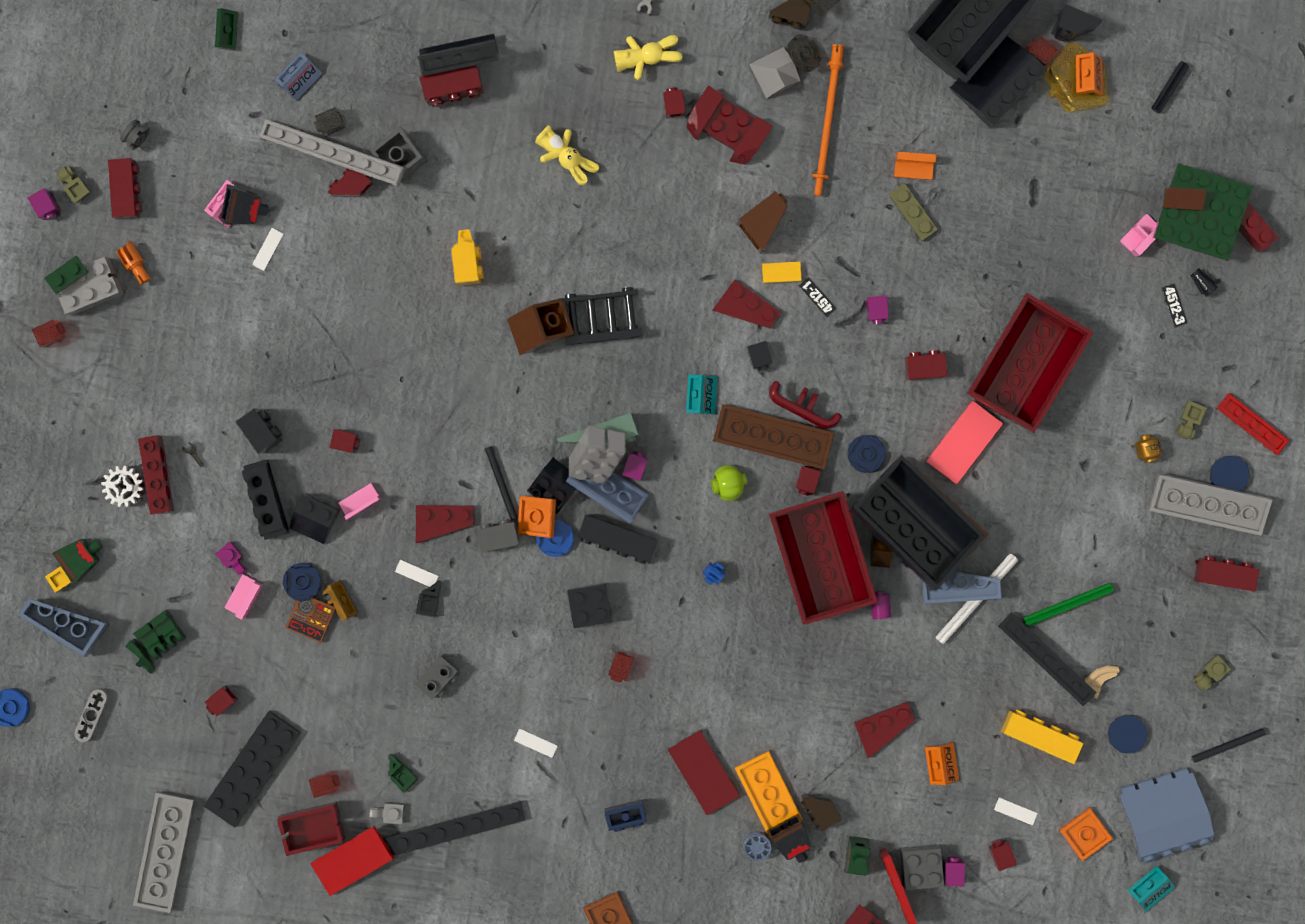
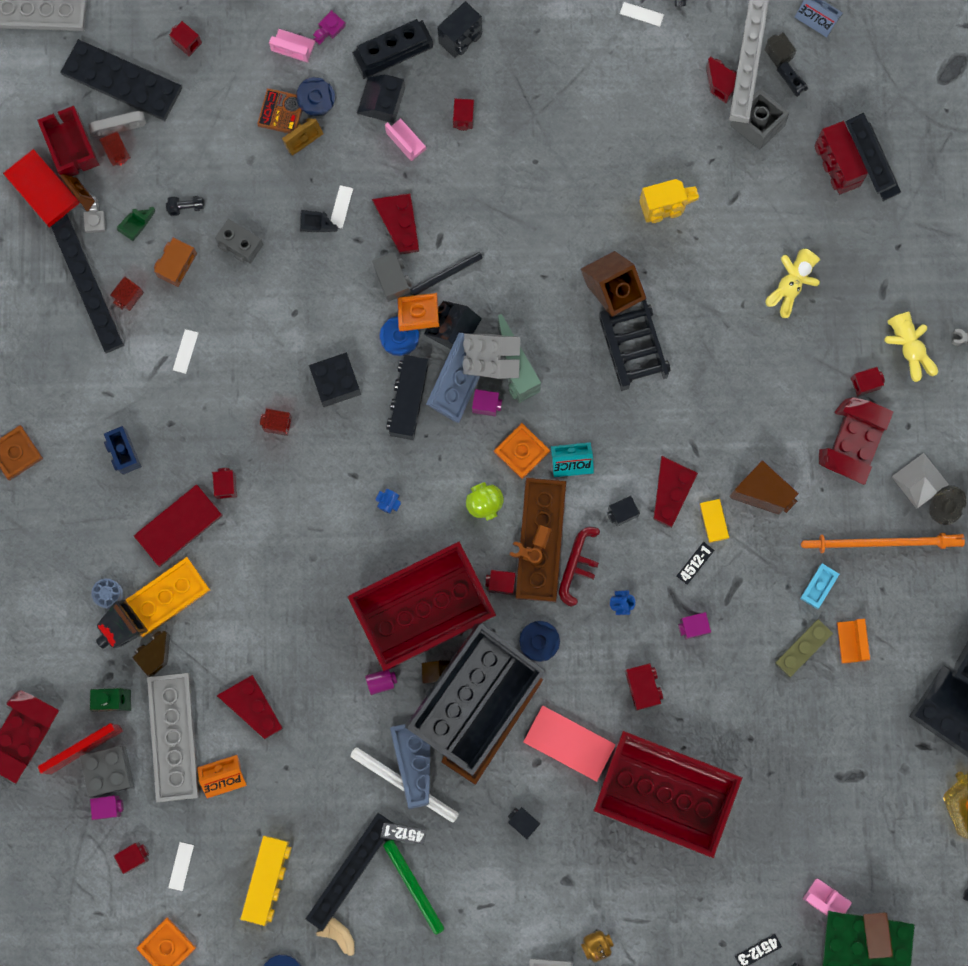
camera: 85 degrees right, 10 degrees down
(298, 779) = (117, 123): none -> light grey beam
(357, 116) = (790, 77): none -> black bar
(363, 824) = (79, 191): none -> reddish brown slope
(391, 735) = (173, 205): none -> black bar
(447, 741) = (175, 262): none -> dark orange brick
(472, 792) = (126, 294): none -> clear red brick
(671, 723) = (224, 483): none -> dark red brick
(685, 440) = (522, 451): none -> orange tile
(788, 444) = (534, 555): none -> dark orange bar
(845, 371) = (622, 602): none -> blue gear
(859, 186) = (819, 586): none -> medium azure plate
(900, 803) = (172, 737): none -> light grey plate
(1020, 606) = (403, 833): none -> sticker
(1028, 496) = (523, 822): none -> black brick

